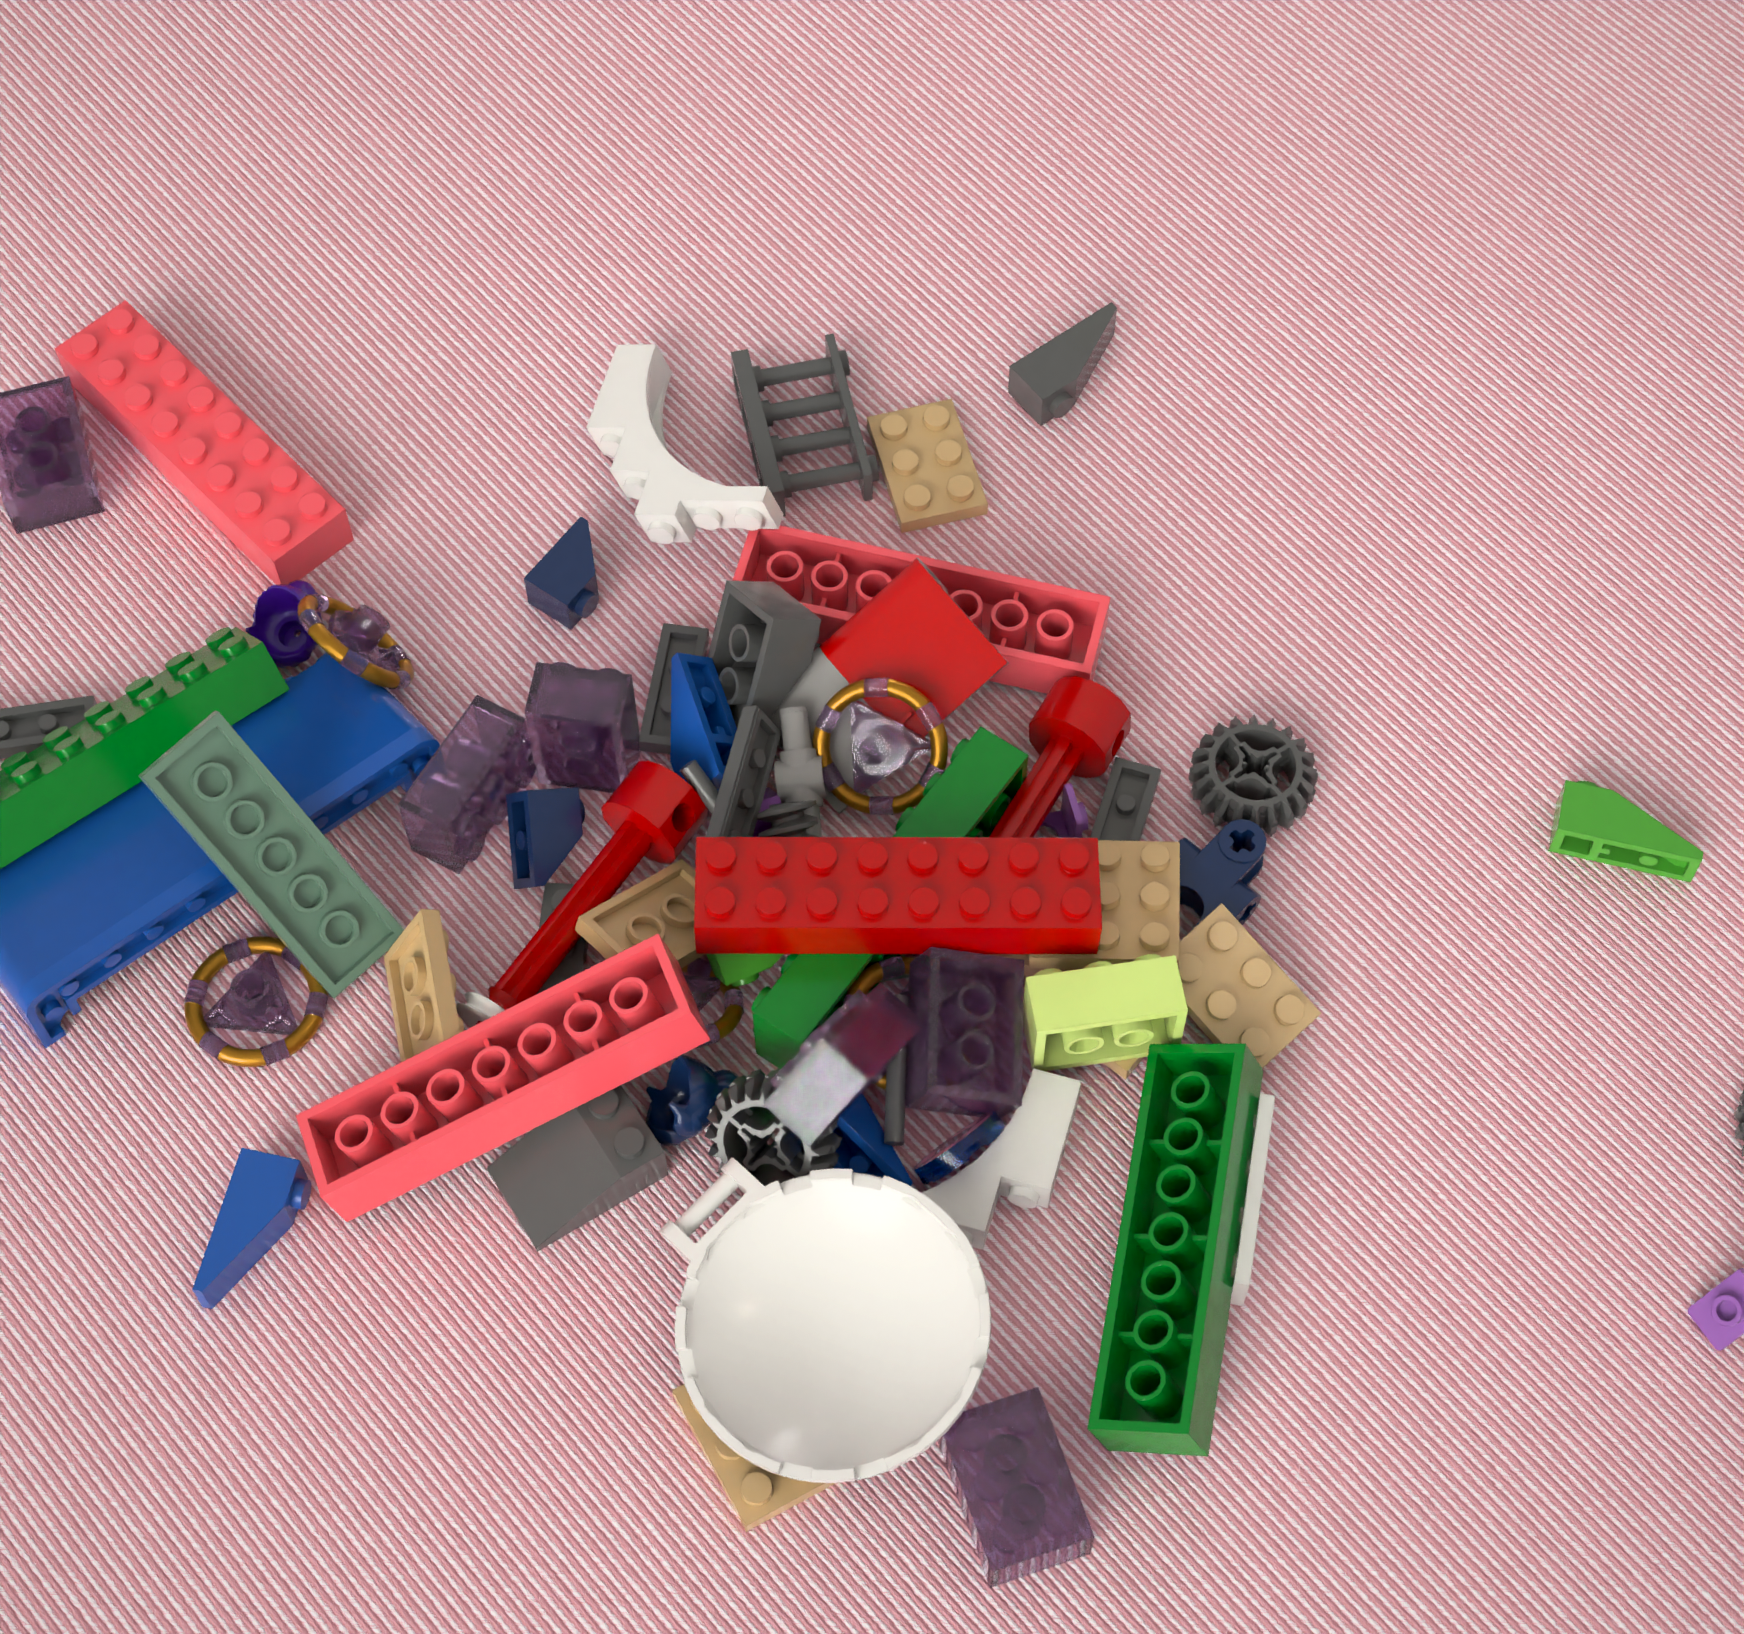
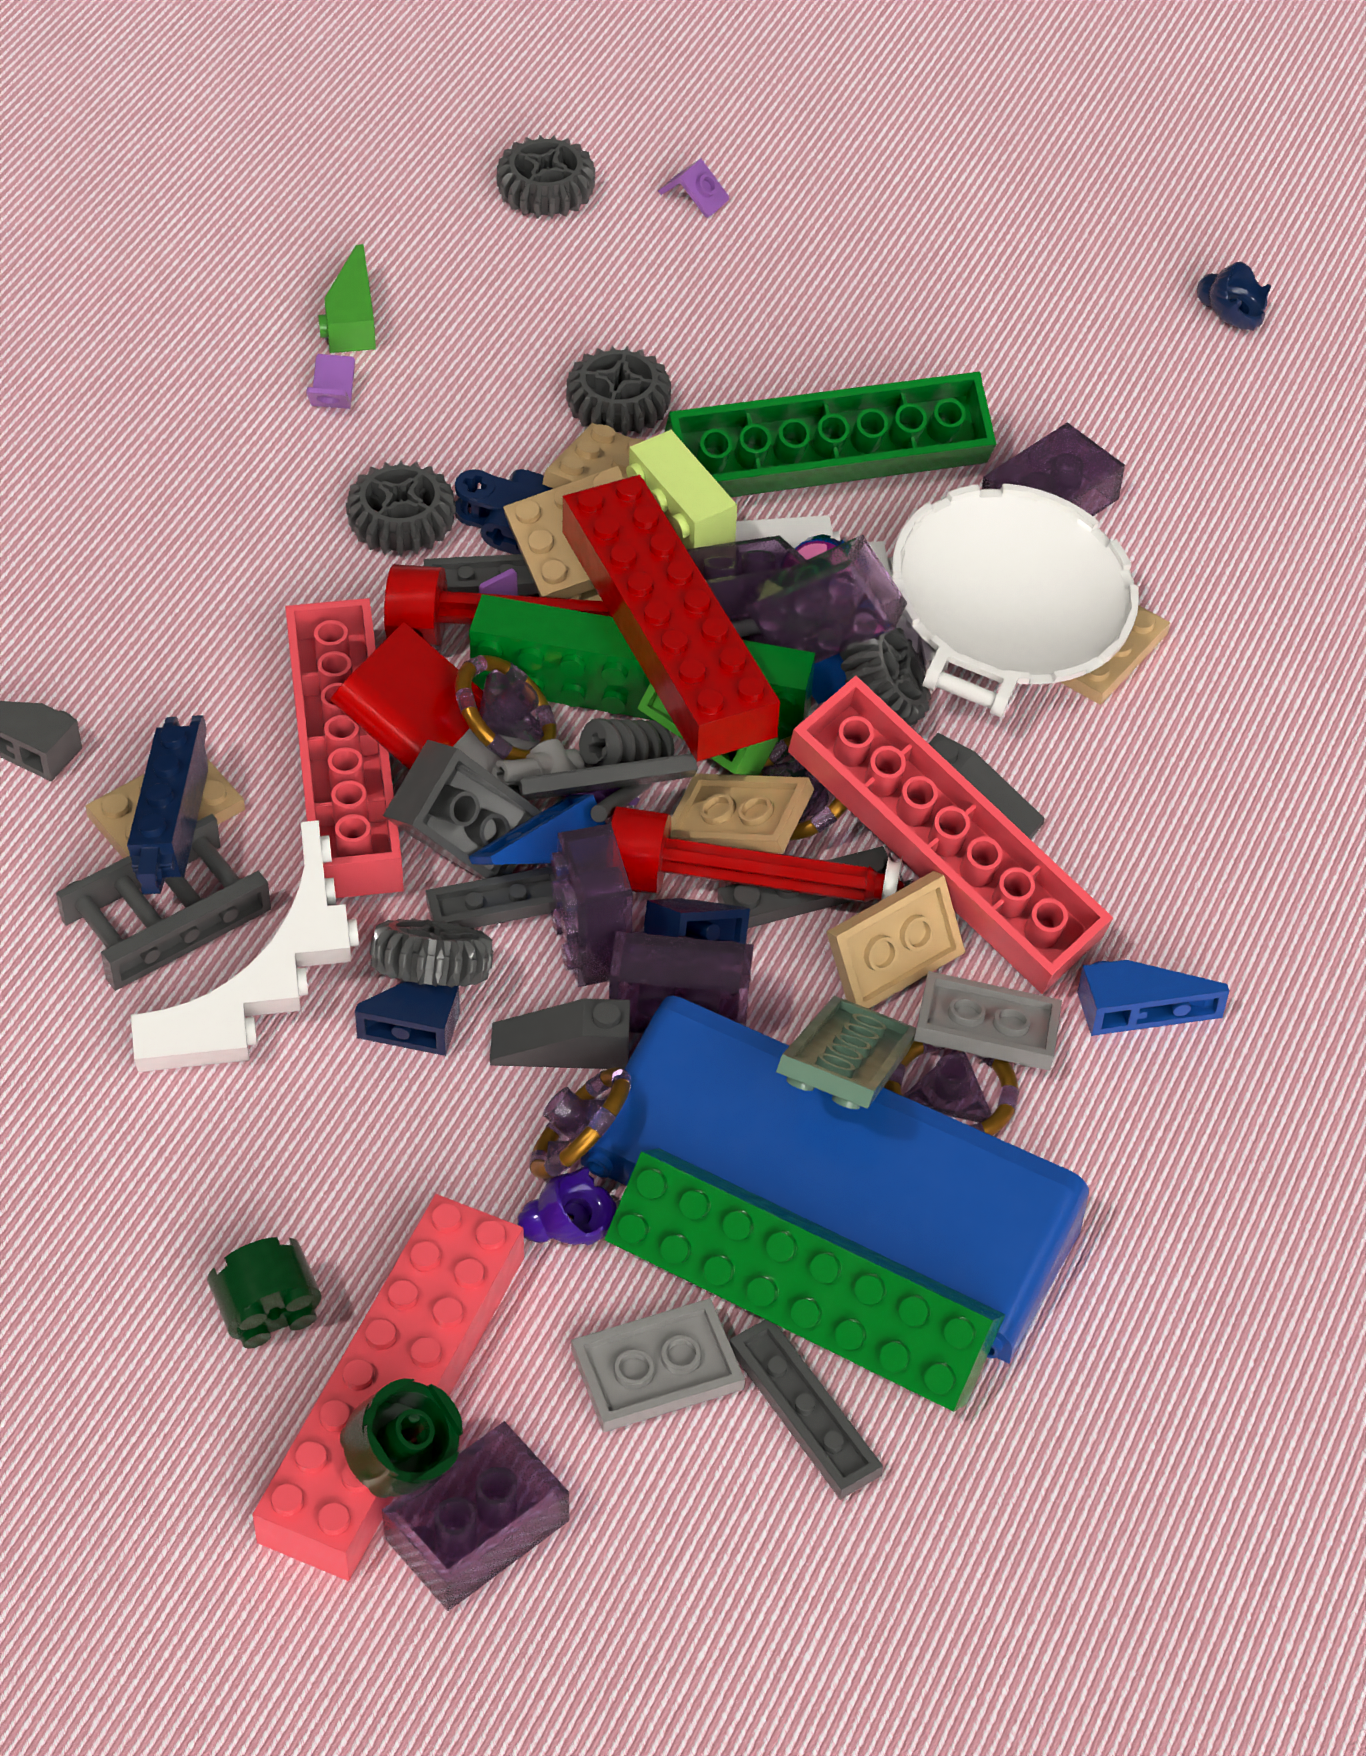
camera: 115 degrees left, 10 degrees down
(99, 385) = (402, 1438): none -> dark green brick
(107, 636) = (657, 1365): none -> light grey plate
(296, 1052) = (988, 1020): none -> light grey plate
(329, 372) = (265, 1290): none -> dark green brick
(489, 672) = (565, 1036): none -> dark grey slope
(597, 600) = (431, 952): none -> dark grey gear
(882, 426) = (169, 803): none -> dark blue hinge
(1338, 1039) = (618, 390): none -> dark grey gear
(1476, 774) = (332, 381): none -> medium lavender bracket

